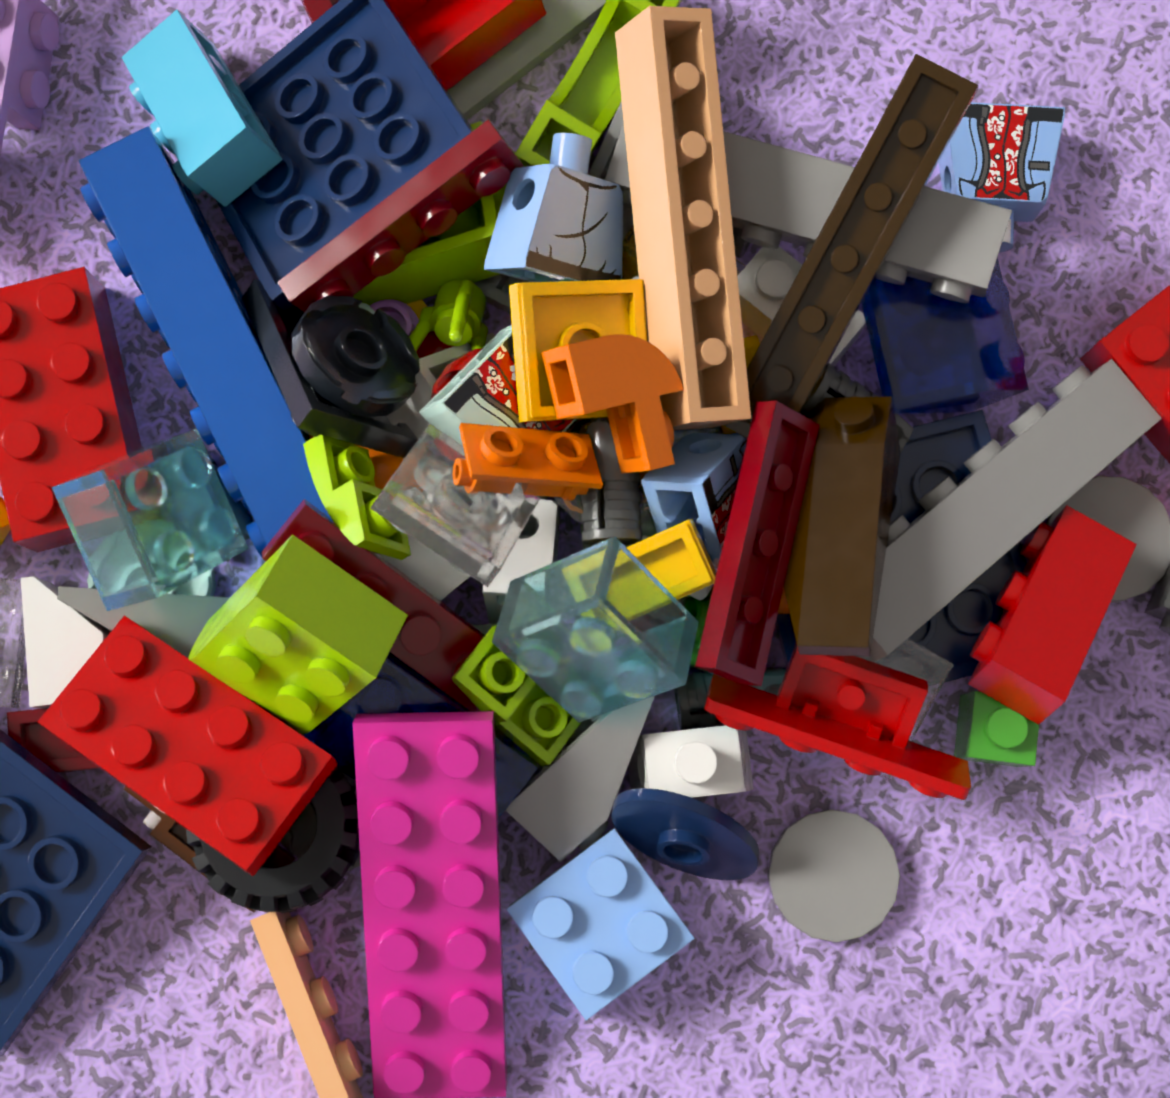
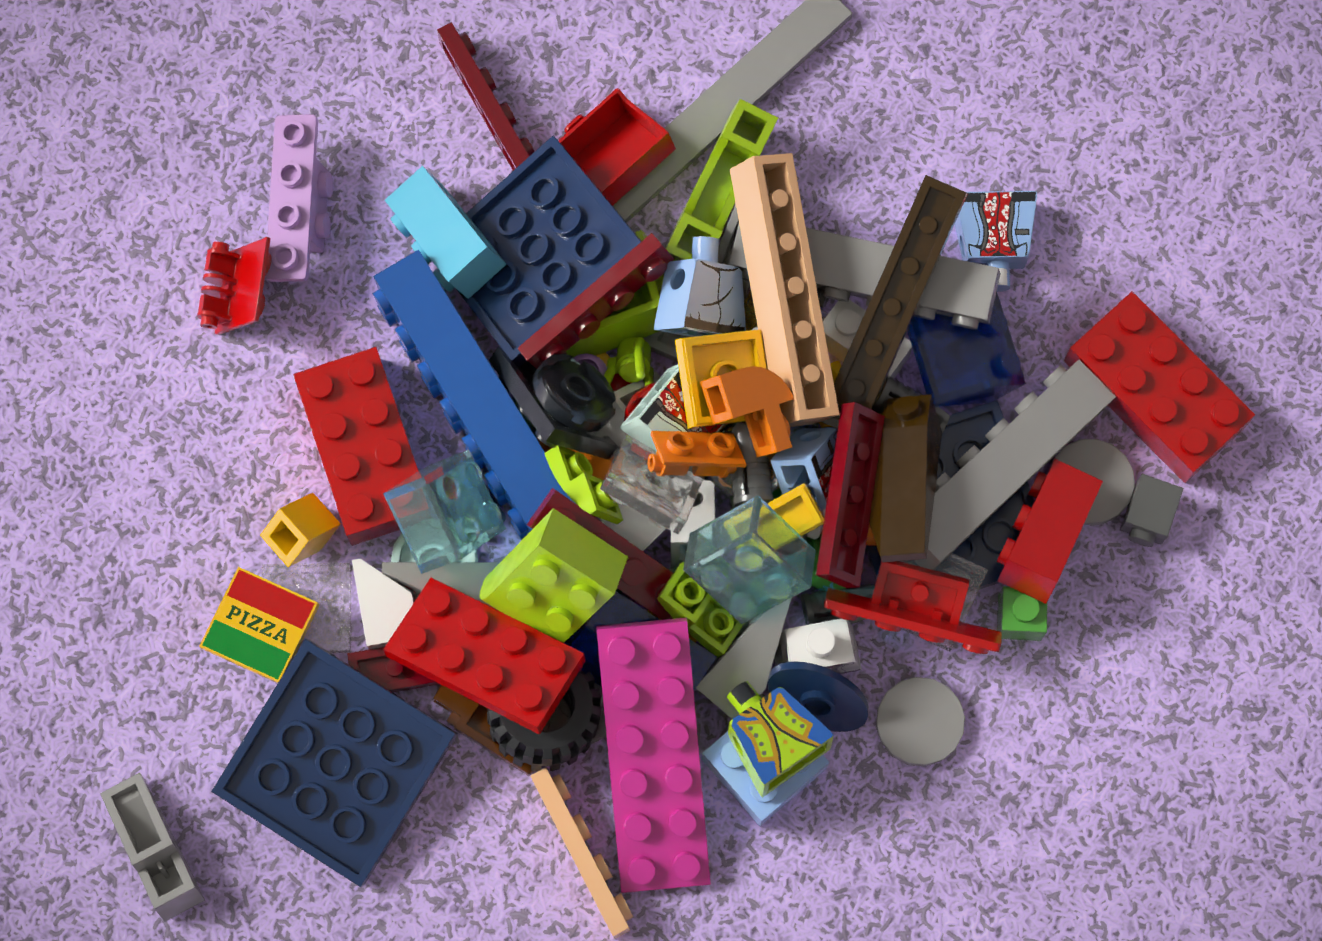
camera: 10 degrees left, 5 degrees down
(613, 899) = (774, 735): none -> torso

